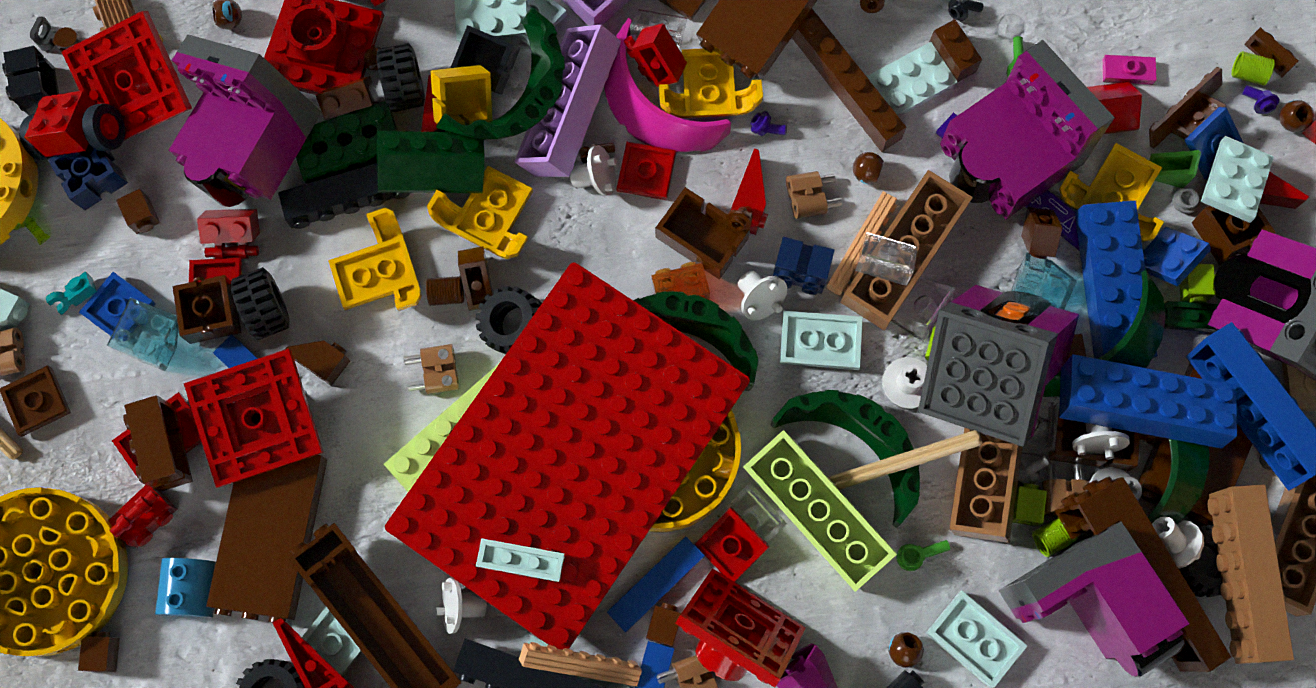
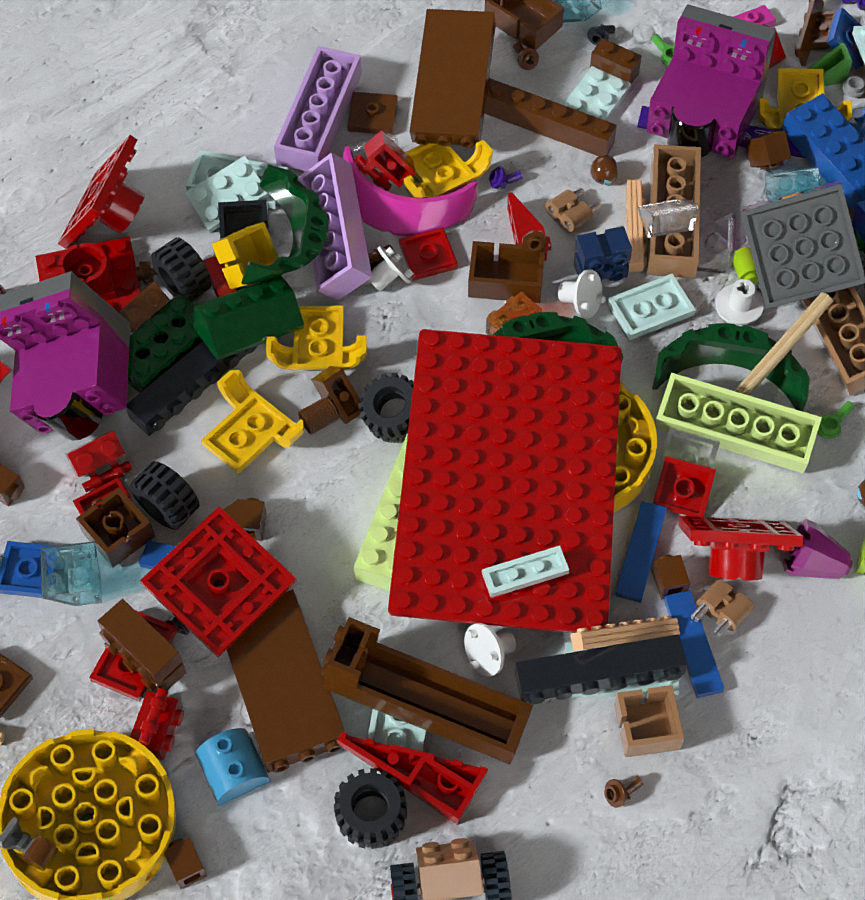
camera: 30 degrees left, 15 degrees down
(438, 369) = (350, 477): medium nougat piece -> none

